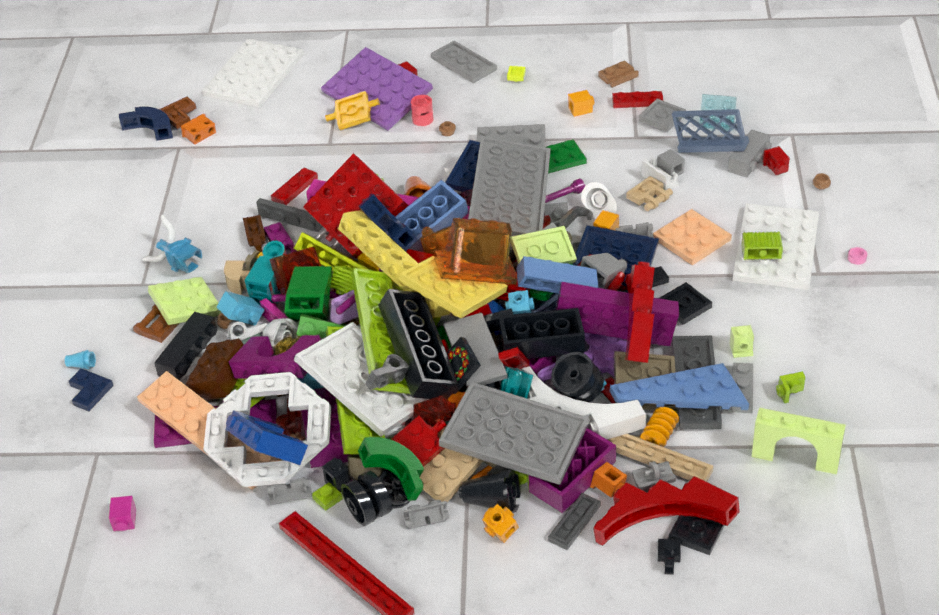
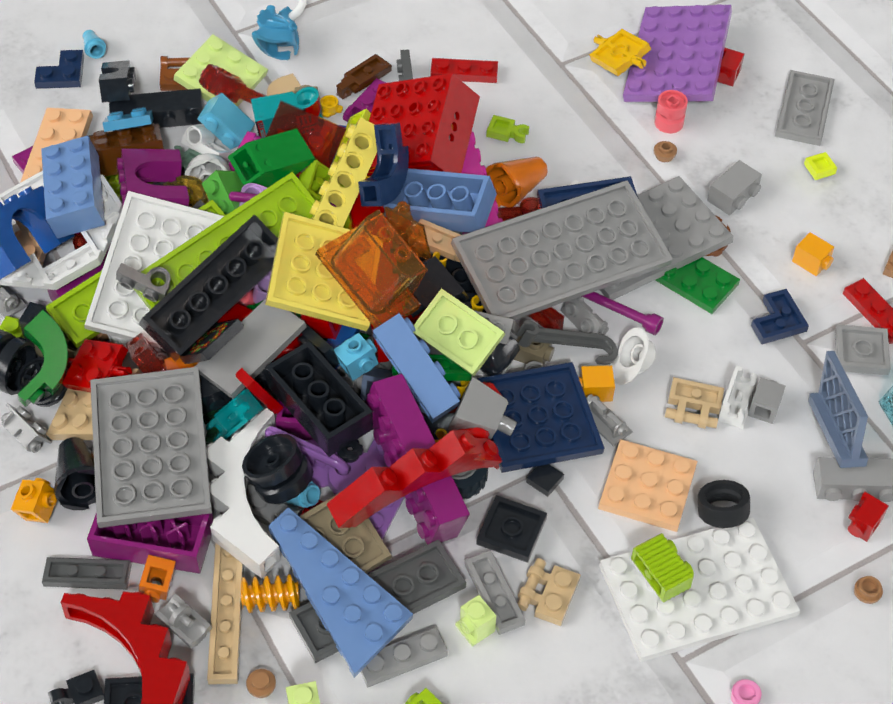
camera: 55 degrees right, 10 degrees up
(153, 349) = (116, 81): none -> black arch
(196, 354) = (118, 121): none -> dark azure plate
(210, 291) = (218, 80): none -> clear red gear
(253, 390) = (72, 187): none -> medium blue brick
(504, 110) = (734, 187): none -> light grey brick
(616, 133) = (783, 321): none -> dark blue plate
(719, 326) = (495, 591): none -> light grey plate
(721, 459) = (261, 683): none -> medium nougat plate
(734, 215) = (723, 516): none -> black tyre
(742, 306) = (556, 596): none -> tan plate

